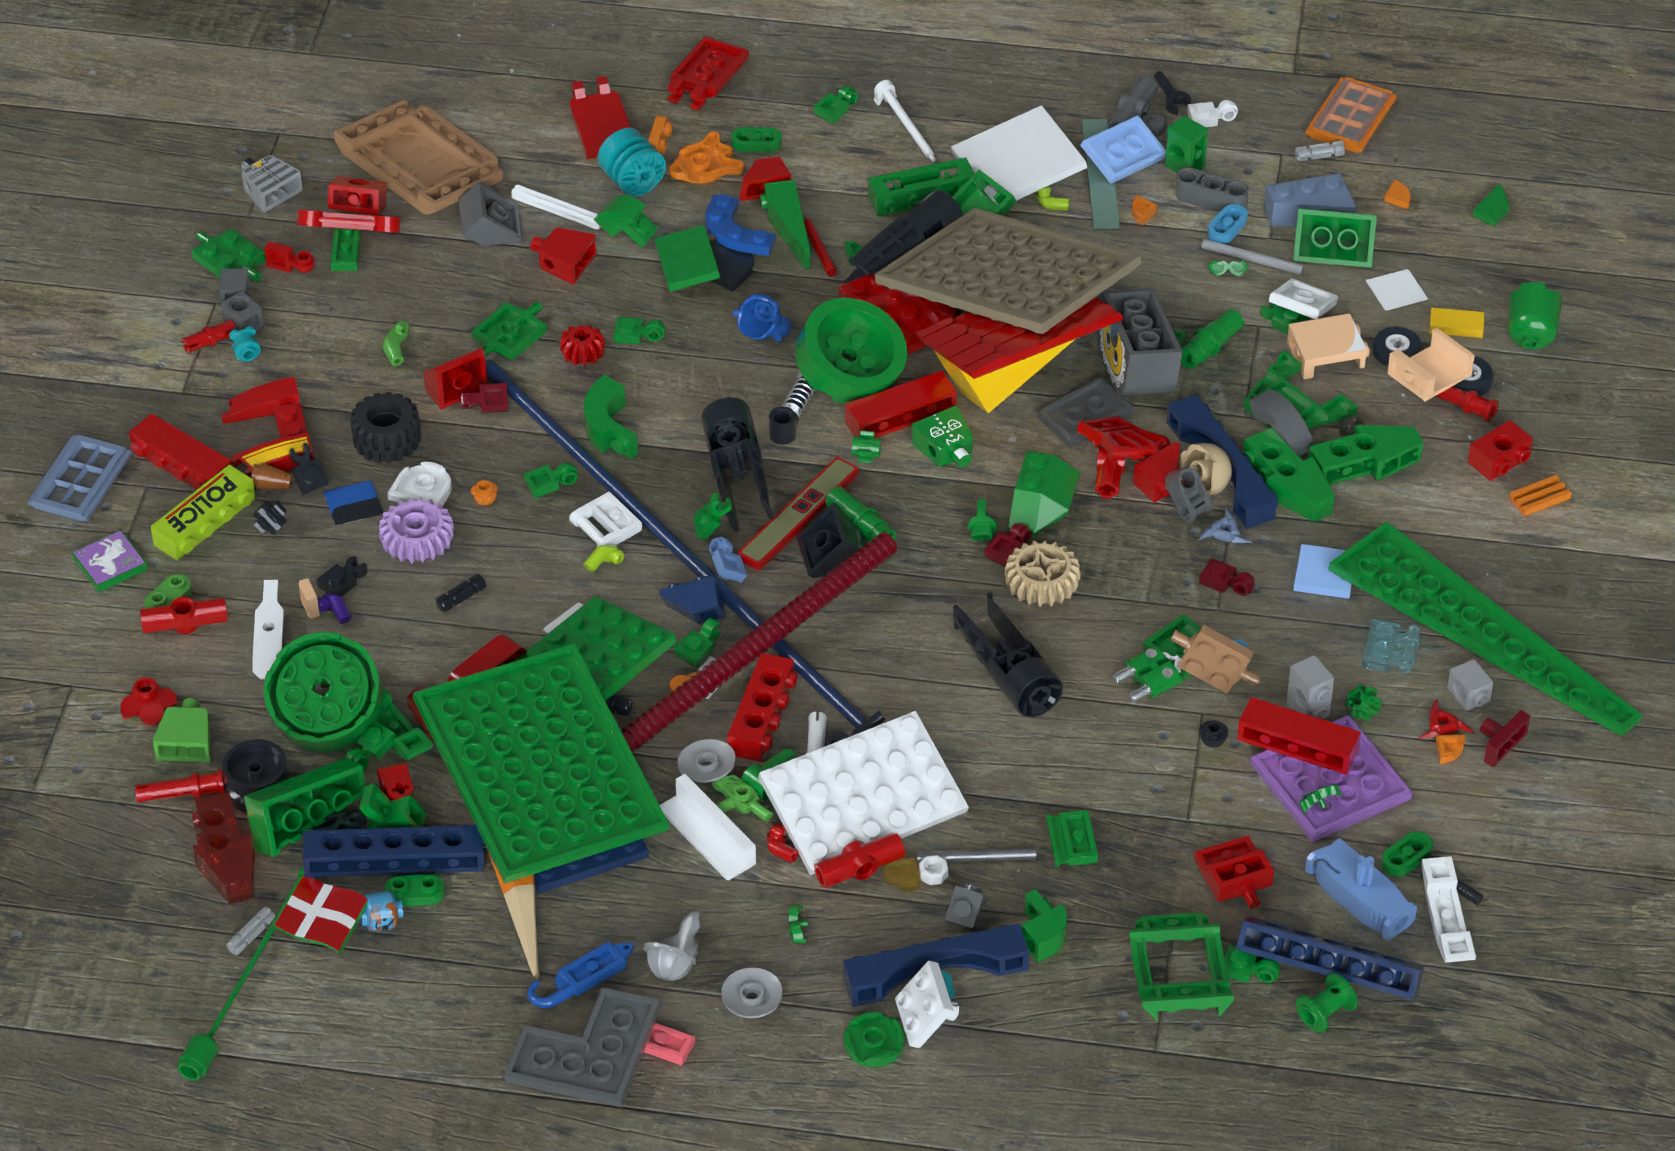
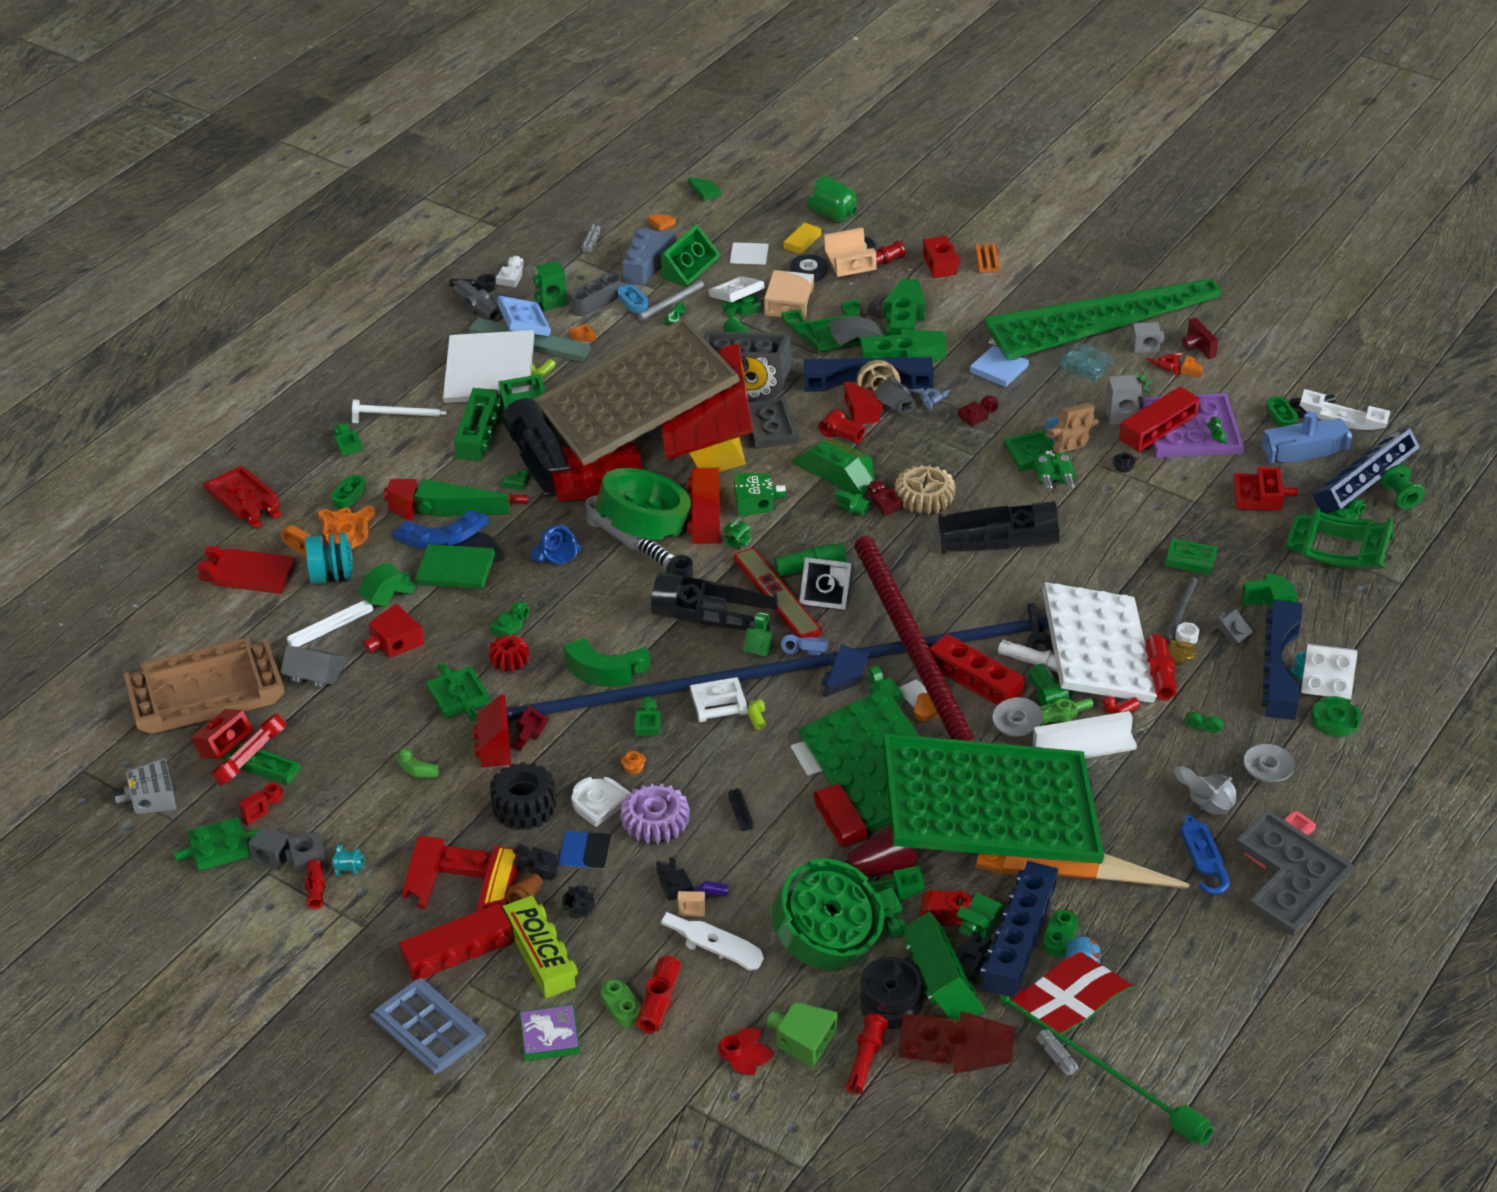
camera: 65 degrees left, 5 degrees down
(1122, 438) = (825, 404): red plate -> none
(1351, 114) = (564, 215): clear piece -> none

